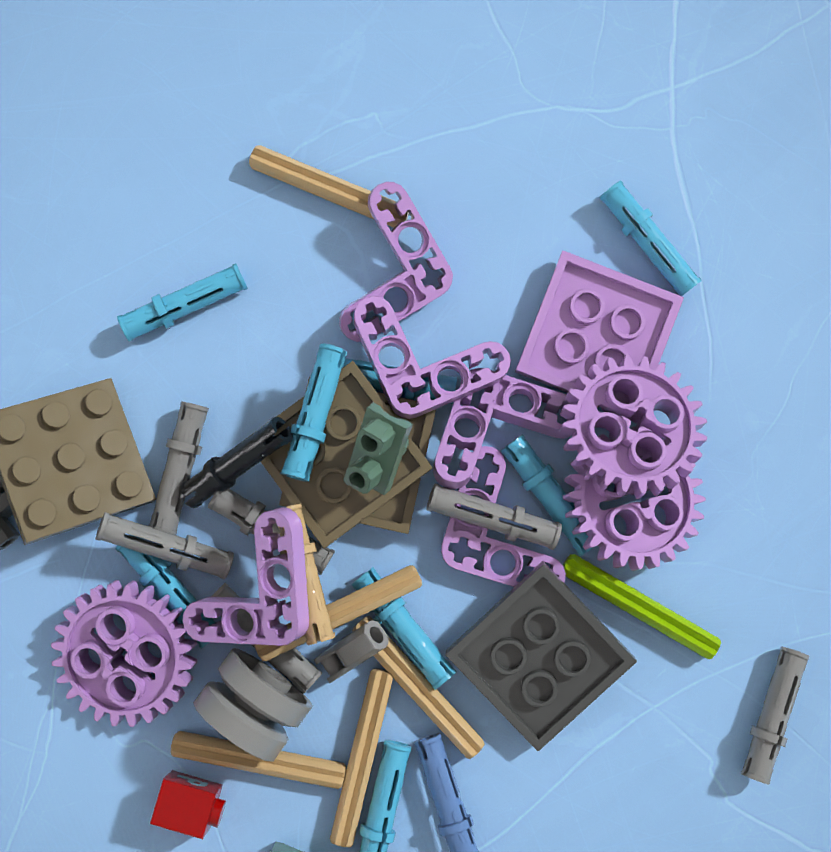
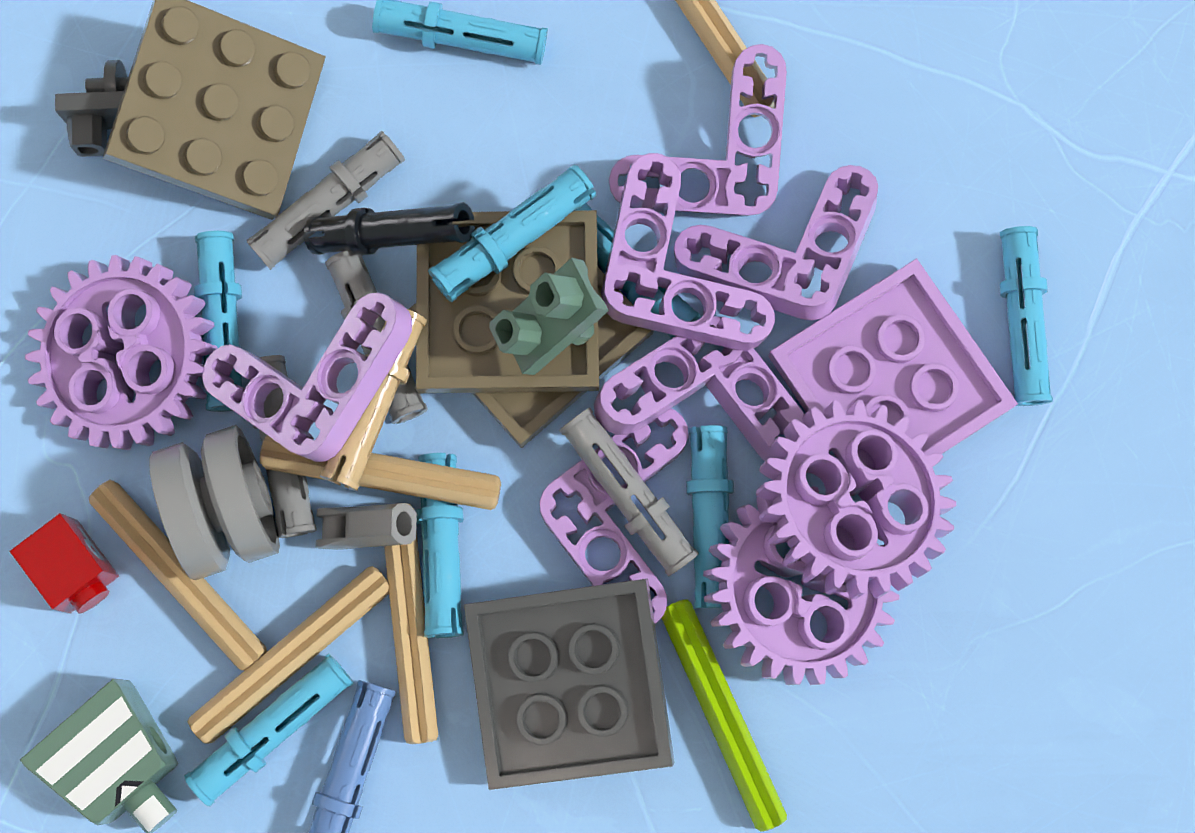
camera: 35 degrees right, 5 degrees down
(214, 561) = (207, 208): light grey pin -> none
(490, 311) = (790, 270): none -> lavender beam

